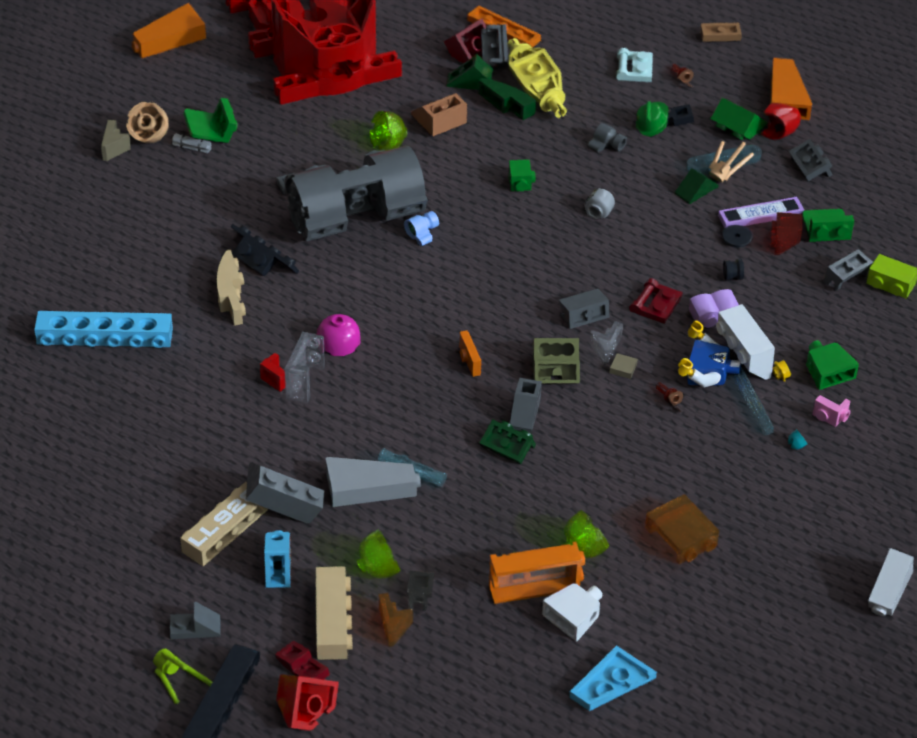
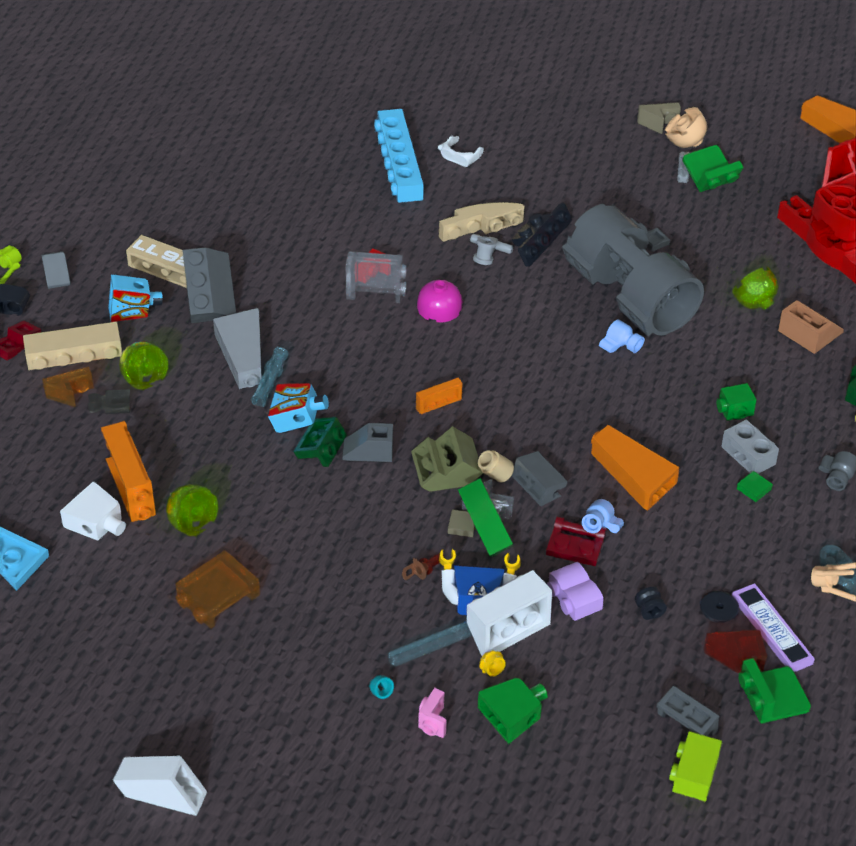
camera: 80 degrees right, 0 degrees up
(111, 294) = (463, 159): none -> white helmet
(273, 288) = (486, 247): none -> light grey piece
(465, 448) = (295, 406): none -> medium azure torso
(571, 328) = (495, 465): none -> tan brick
(574, 179) = (750, 447): none -> light grey brick
(583, 249) = (635, 467): none -> orange slope
(599, 203) = (719, 473): light grey head -> none
(615, 188) = (754, 486): none -> green tile
(636, 341) = (485, 517): none -> green slope
(638, 278) = (601, 515): none -> light blue piece
(695, 186) = (793, 558): dark green slope -> none

